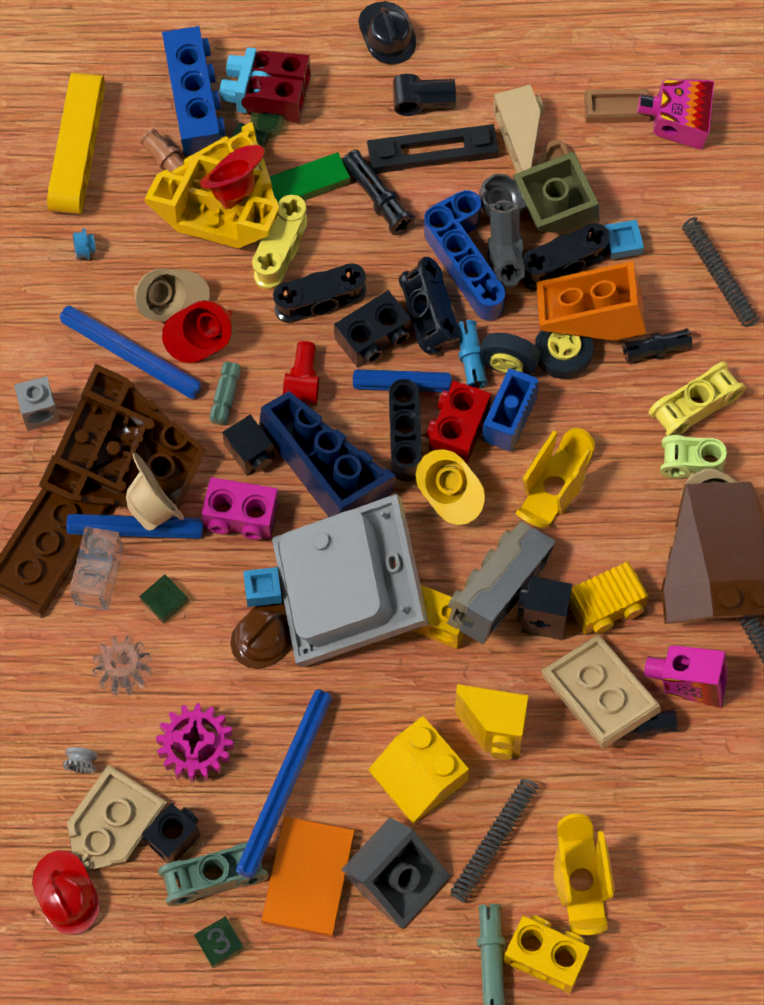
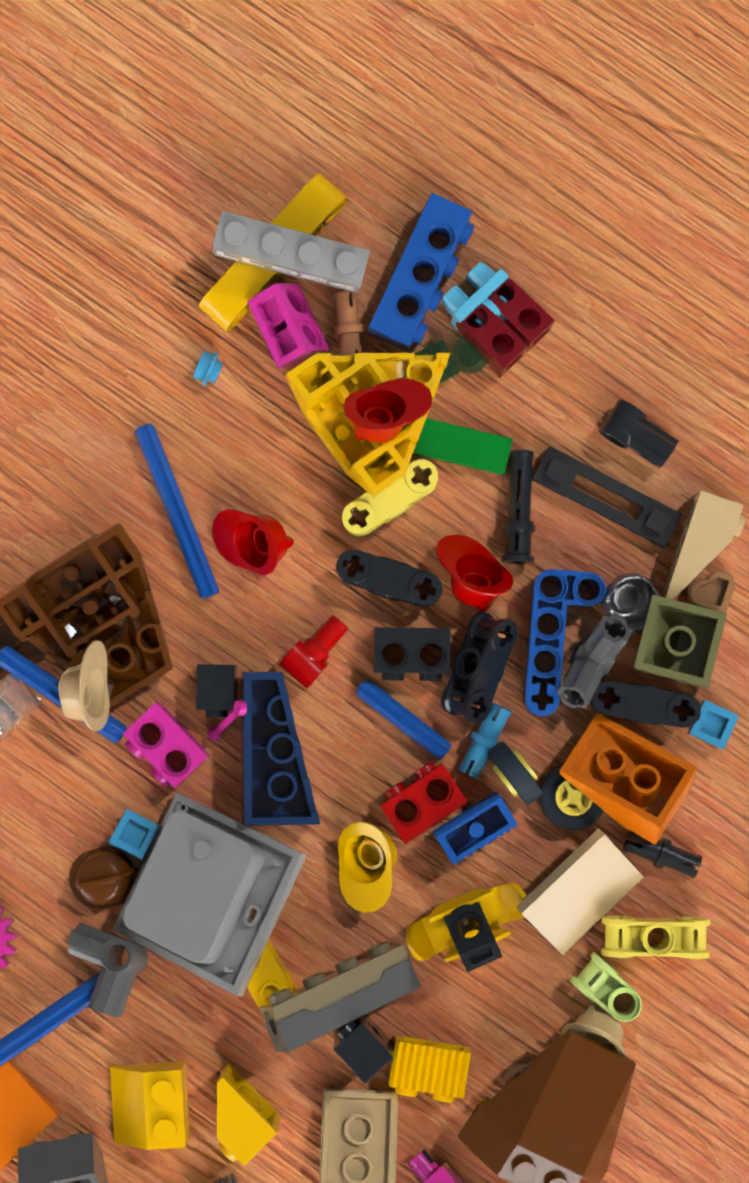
camera: 40 degrees right, 20 degrees up
(37, 403) = (54, 508): light grey brick -> none
(90, 121) = (290, 252): none -> light grey brick
(119, 174) = (287, 324): none -> dark pink brick
(163, 598) = (43, 779): clear green tile -> none
(169, 291) = (247, 483): tan piece -> none
(225, 393) = (234, 616): sand green axle -> none
(275, 432) = (239, 709): none -> dark pink hinge
(323, 687) = (114, 979): none -> dark grey piece
(379, 253) = (474, 571): none -> red piece
(387, 32) = (656, 335): black piece -> none
(403, 415) = (366, 792): black beam -> none
(564, 461) = (477, 949): none -> black brick
(619, 403) = (580, 891): none -> tan tile

